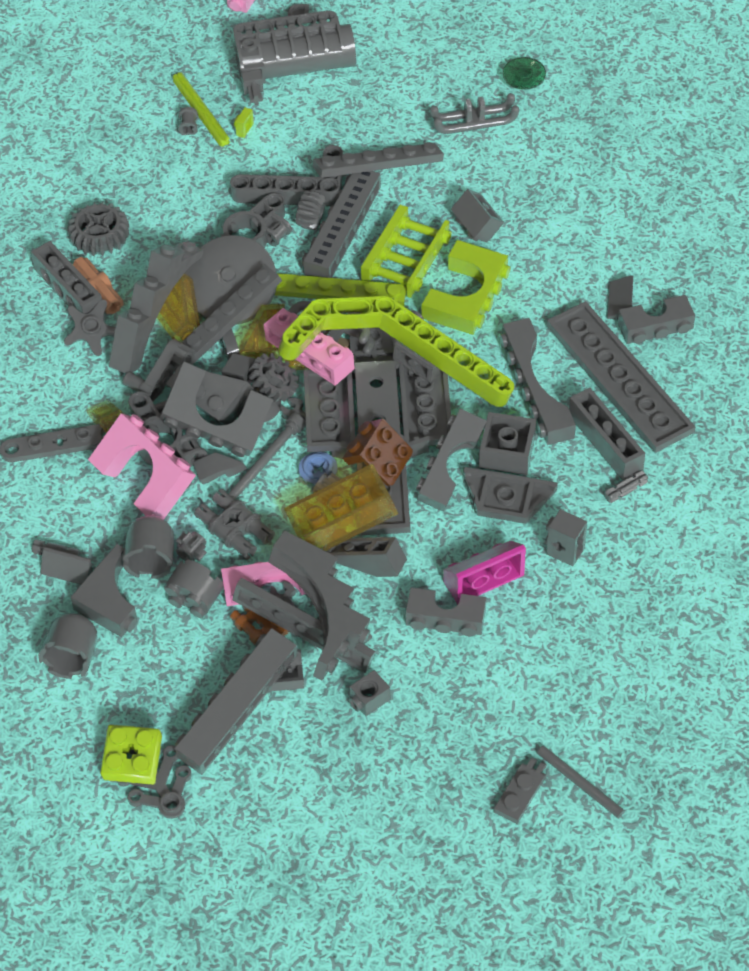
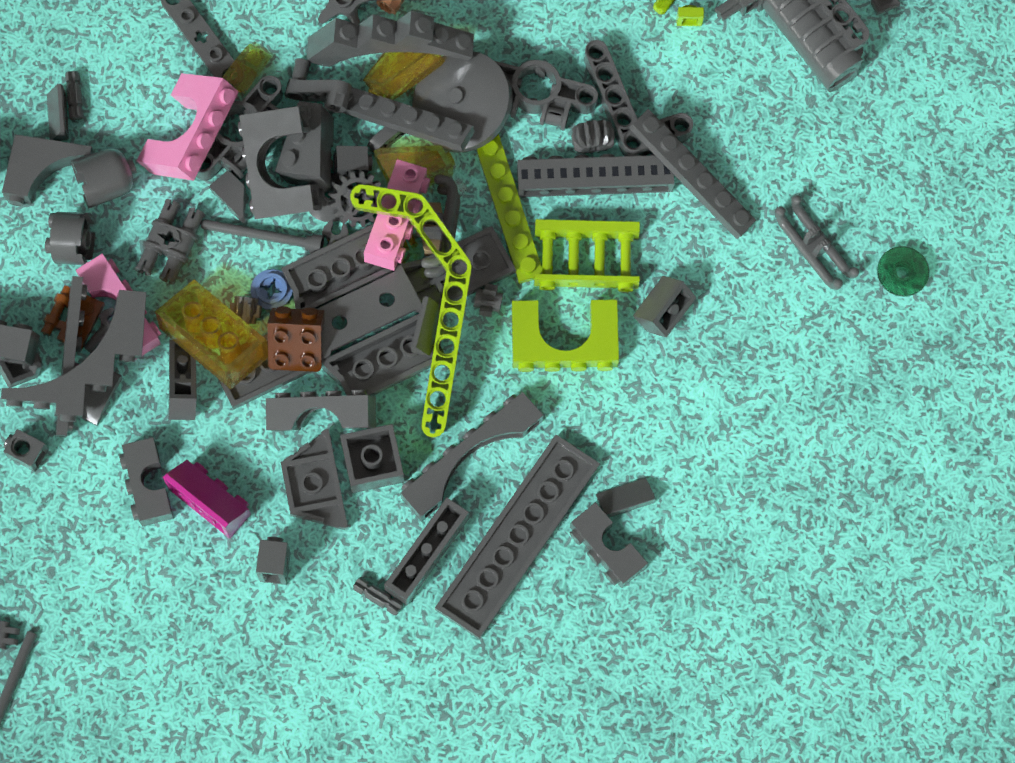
camera: 60 degrees right, 20 degrees up
(191, 546) = (124, 214): dark grey gear -> none

